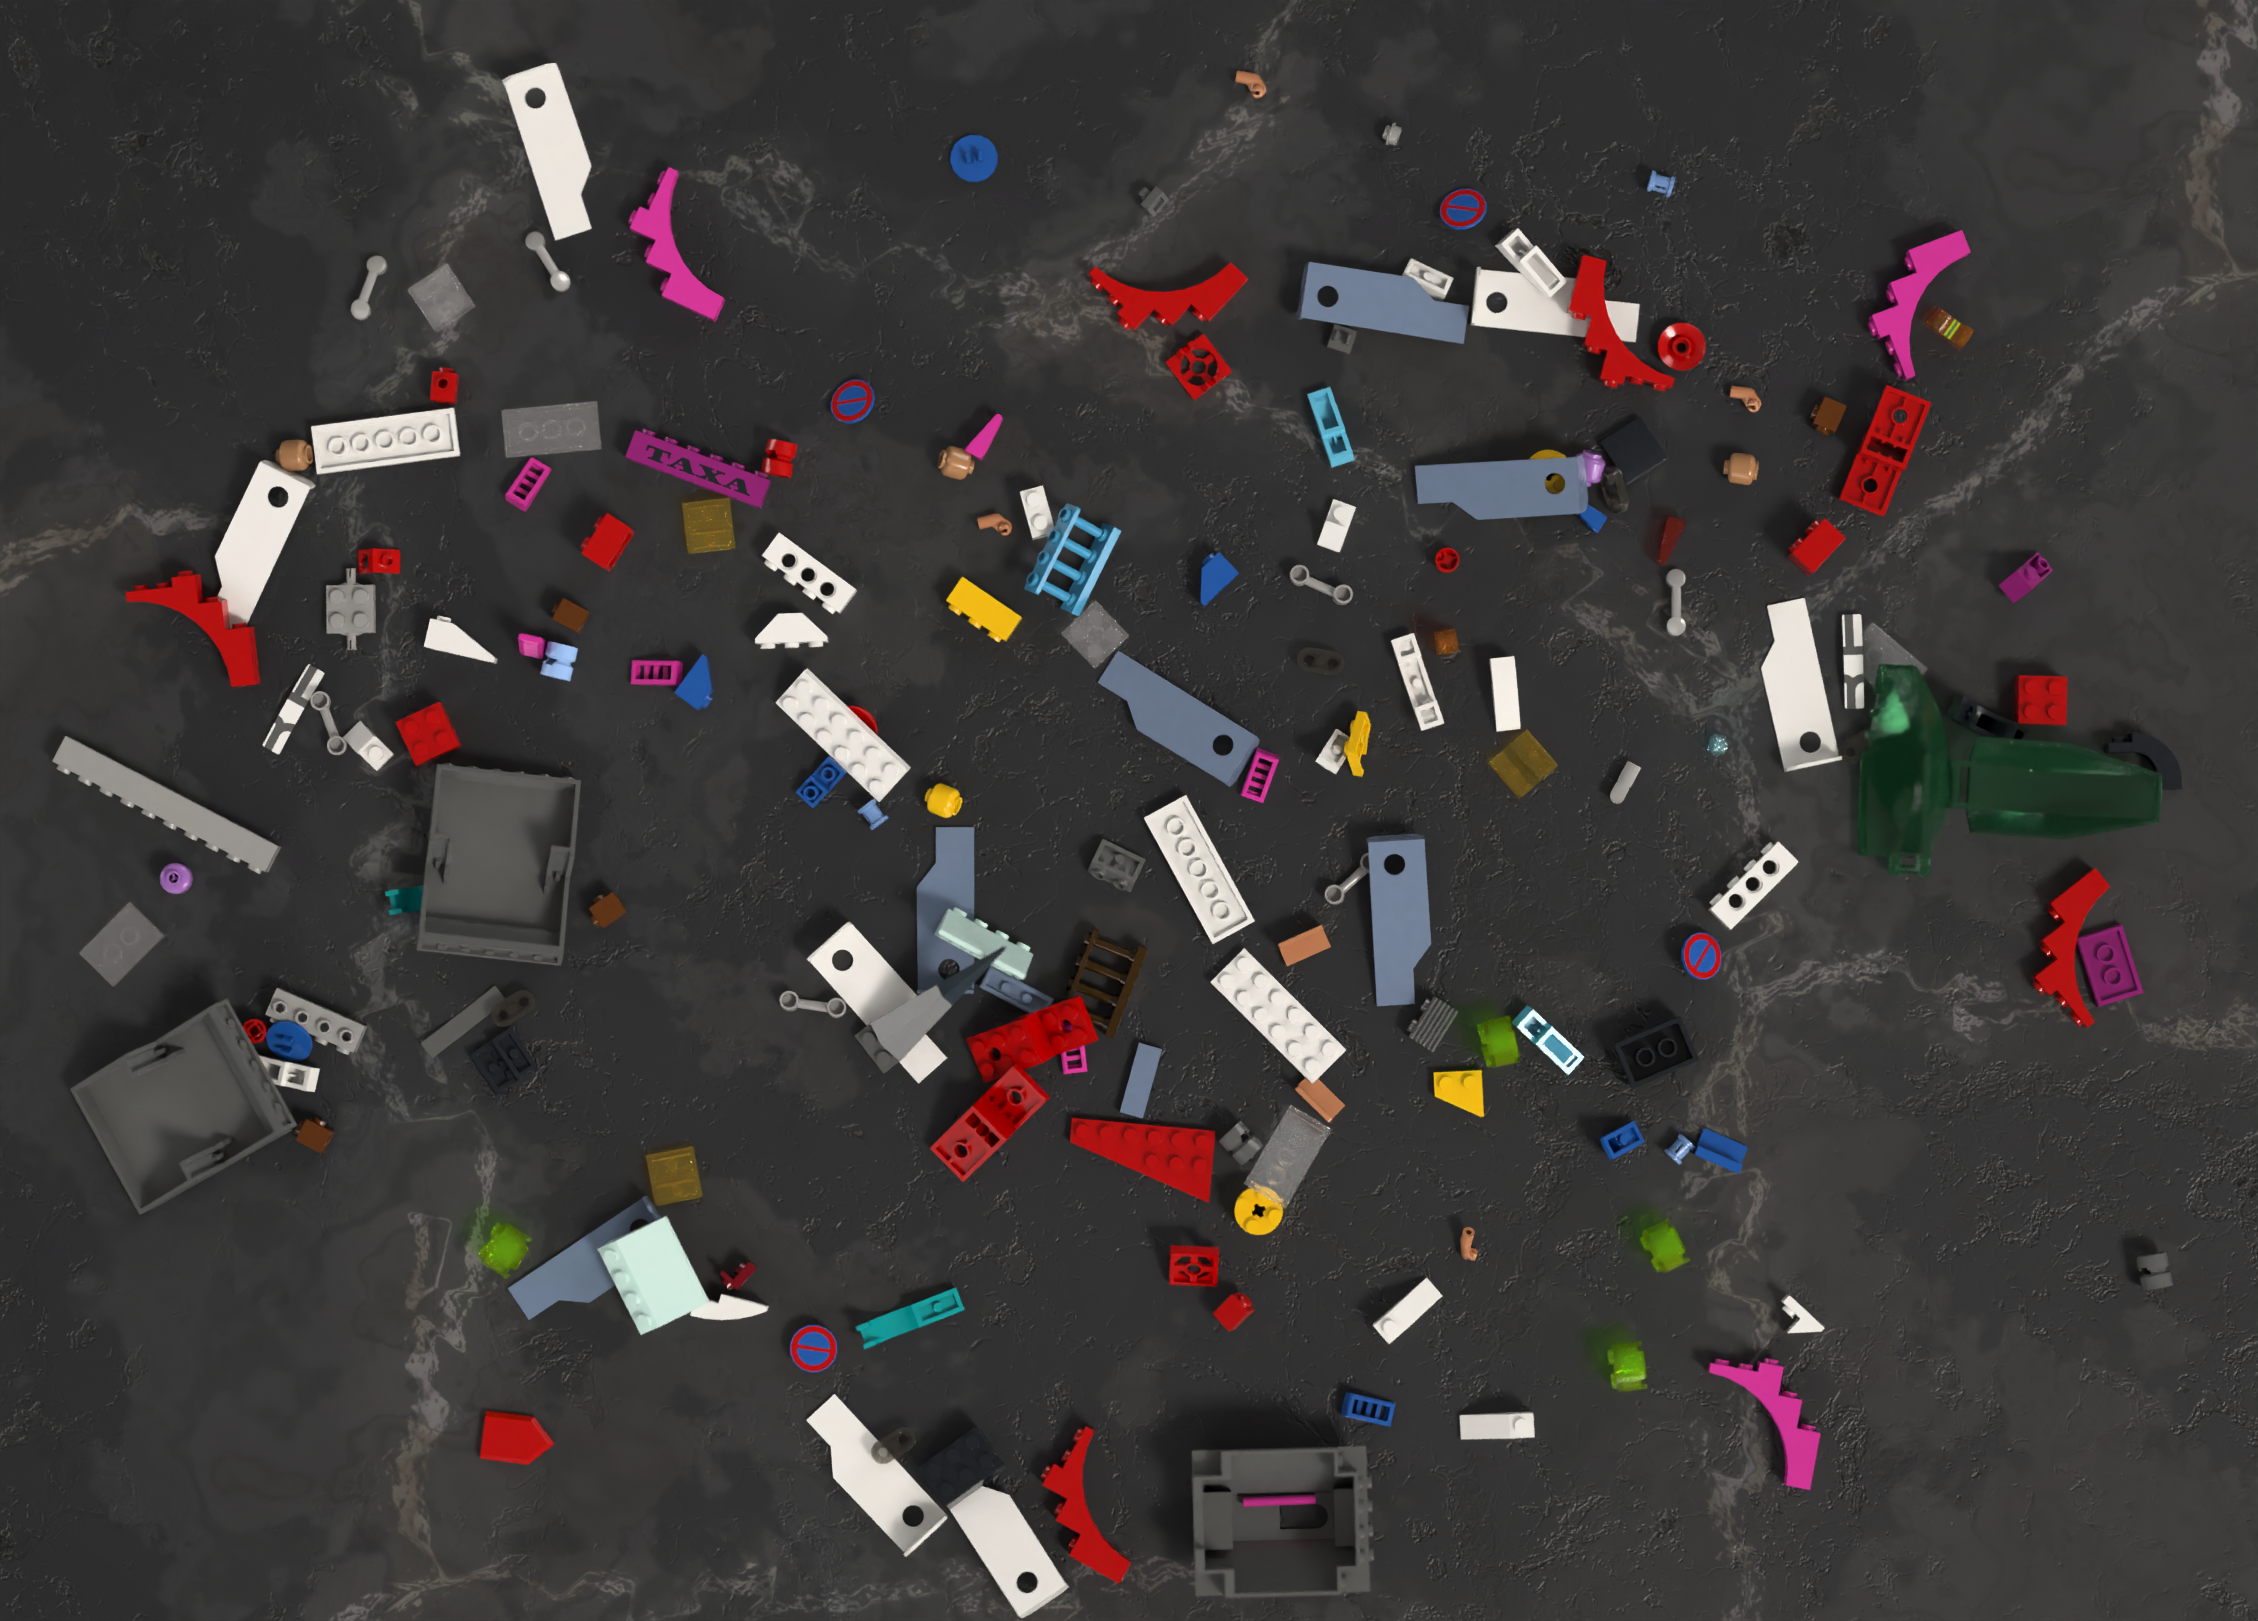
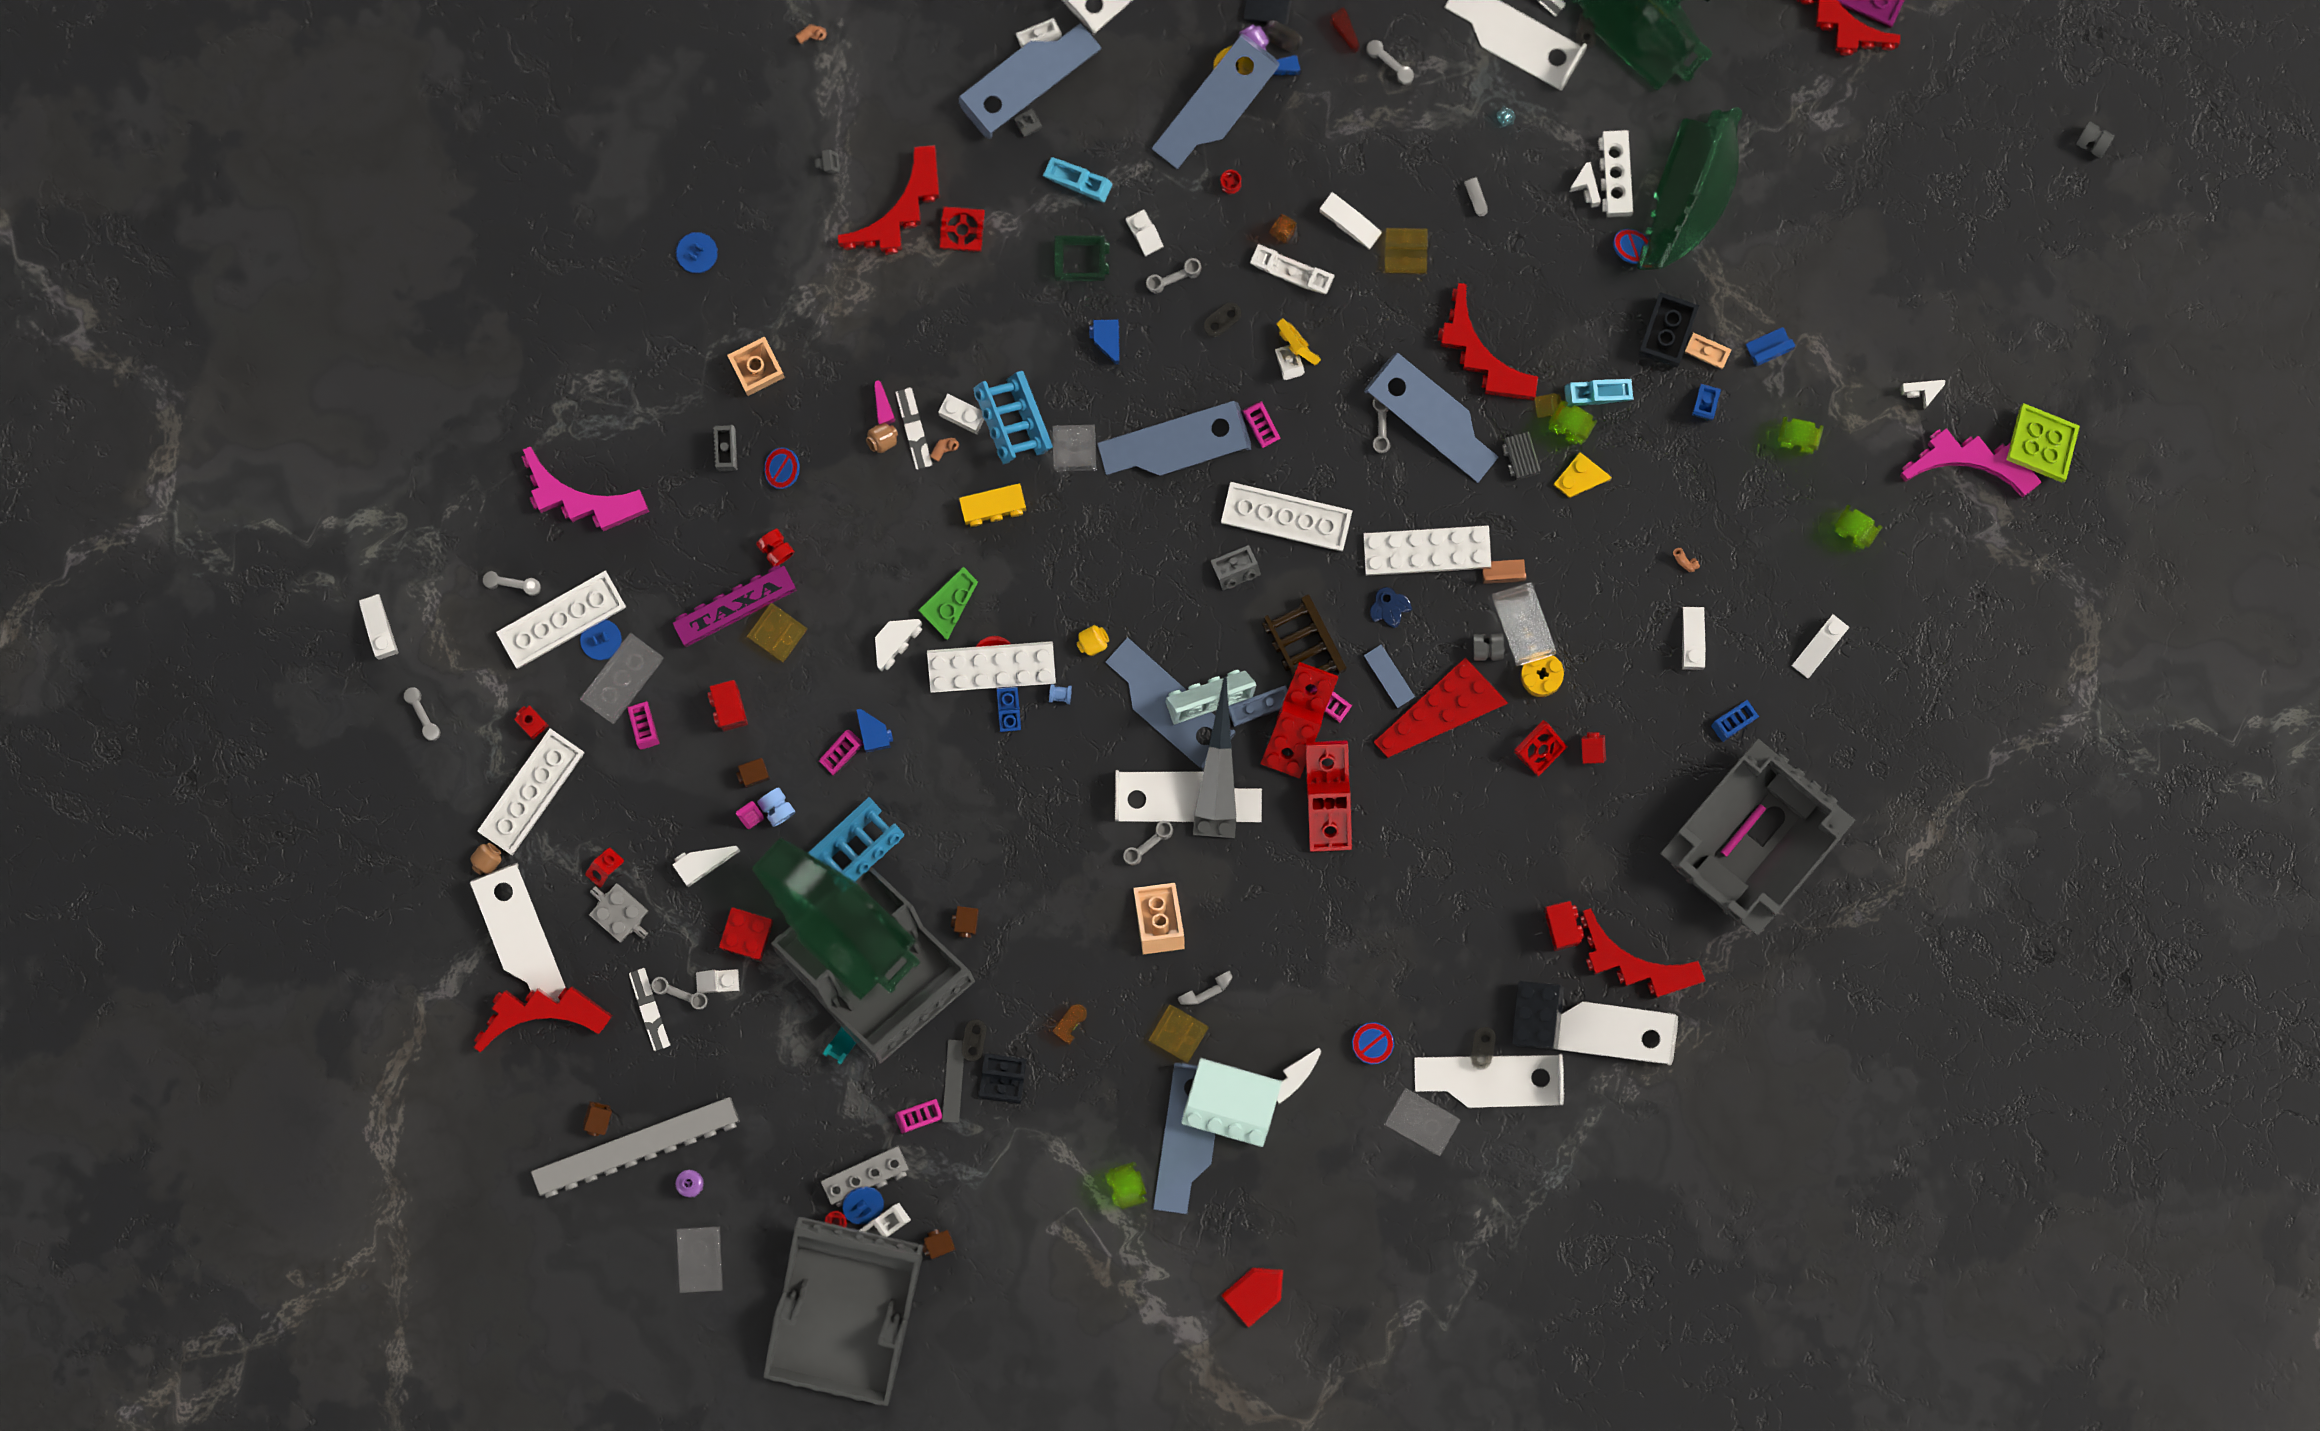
camera: 45 degrees left, 5 degrees down
(160, 750) = (597, 1118): none -> reddish brown brick
(404, 1027) = (908, 1112): none -> dark pink slope
(408, 182) = (378, 627): none -> white slope
(441, 297) = (472, 671): clear brick -> none
(501, 802) = (836, 919): none -> clear green windscreen
(552, 147) = (441, 514): white piece -> none
(554, 332) = (561, 619): none -> white plate
(569, 380) = (601, 640): none -> blue piece
(587, 738) = (852, 827): none -> dark azure fence
(611, 1075) = (1074, 1016): none -> clear orange leg
(743, 1273) = (1281, 1045): dark red bracket -> none
(751, 1174) = (1222, 982): none -> light grey bar
(757, 1071) = (1159, 918): none -> light nougat slope
(781, 547) = (835, 595): white brick -> none
(785, 1449) = (1422, 1122): none -> clear tile
(825, 338) = (725, 448): none -> dark grey brick
(866, 648) = (948, 603): none -> bright green wing
(910, 1317) = (1409, 962): teal piece -> none
(919, 299) = (756, 366): none -> light nougat slope
(989, 481) = (913, 428): none -> sticker
(1057, 1421) = (1563, 925): none -> red brick
(1198, 1030) = (1389, 610): none -> dark blue plate
(1251, 470) = (1060, 241): none -> clear green window
(1304, 945) = (1396, 493): nougat panel -> none
(1491, 877) = (1500, 378): none -> red arch
(1497, 1005) = (1547, 404): none -> clear yellow slope
(1668, 1101) = (1707, 351): none -> light nougat plate
(1682, 1143) = (1742, 365): medium blue bush -> none
(1724, 864) = (1587, 180): none -> white slope
(1796, 963) = (1693, 187): none -> clear green windscreen
(1845, 1461) = (2043, 442): none -> lime plate

